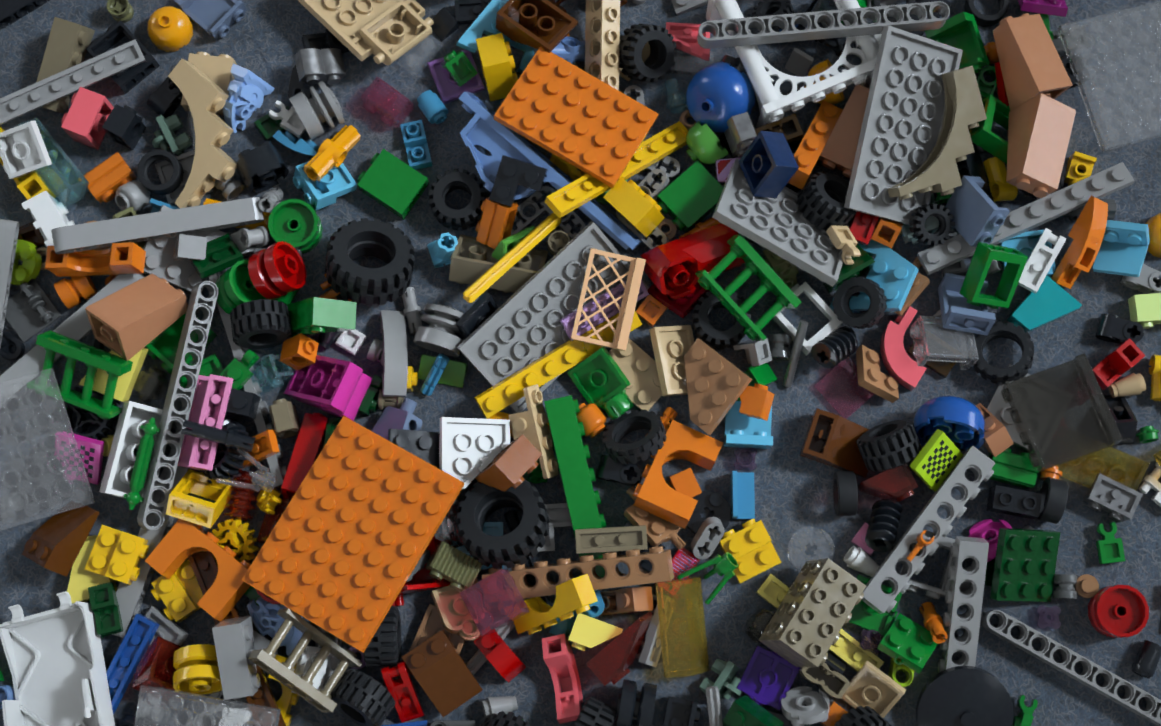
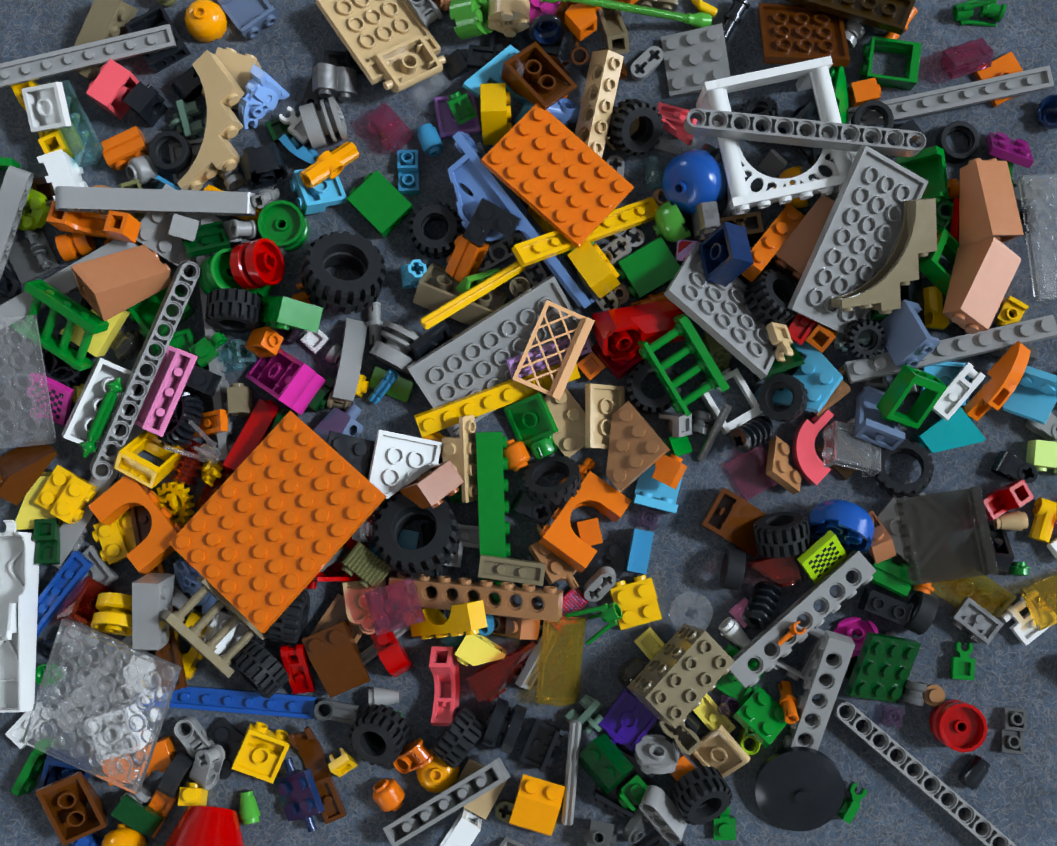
camera: 10 degrees right, 5 degrees up
(228, 438) = (182, 411): black pin -> none

